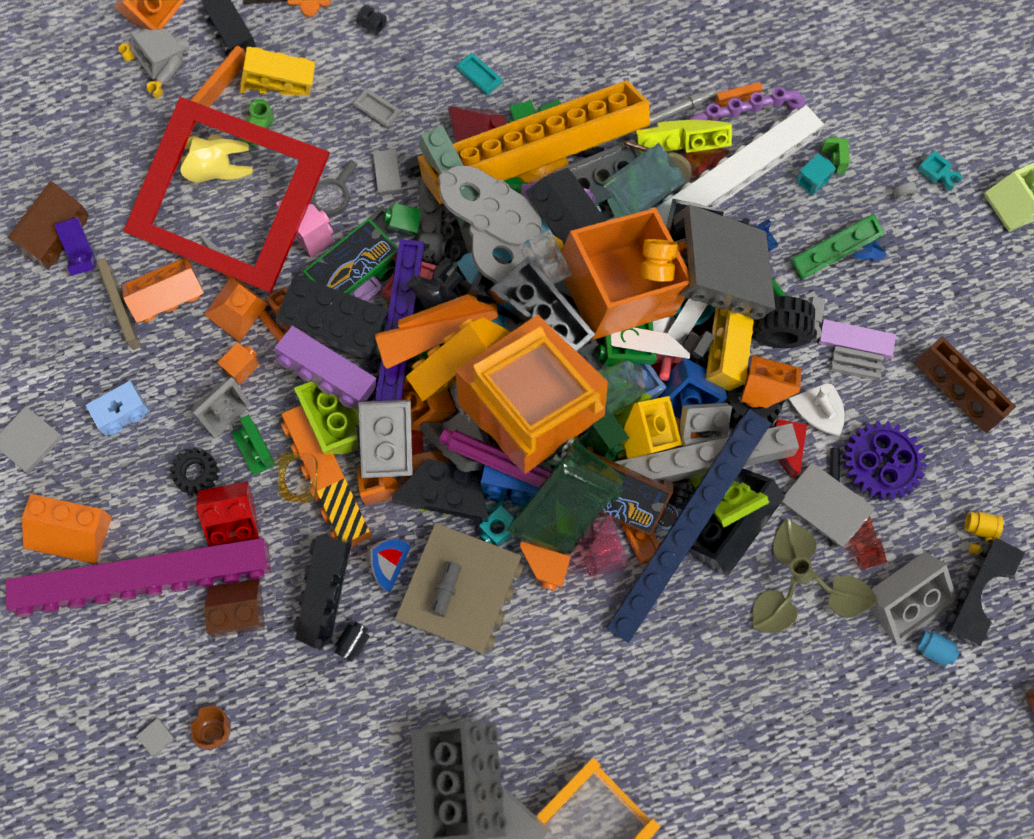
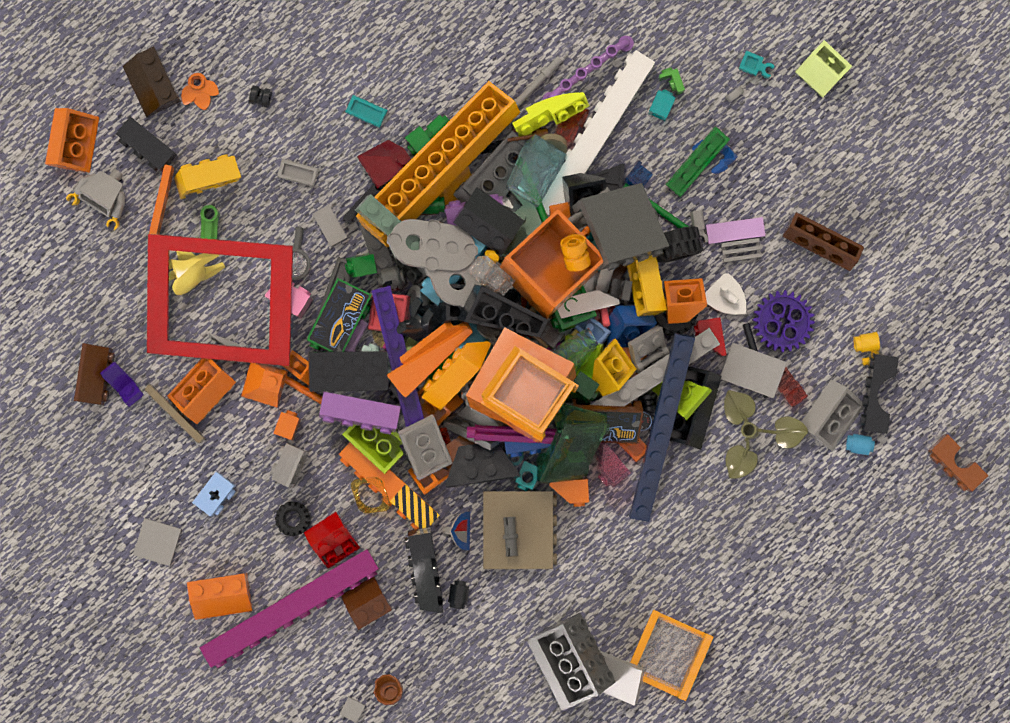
camera: 25 degrees left, 15 degrees up
(253, 446) = (327, 484): green bracket -> none
(742, 93) = (579, 57): orange tile -> none

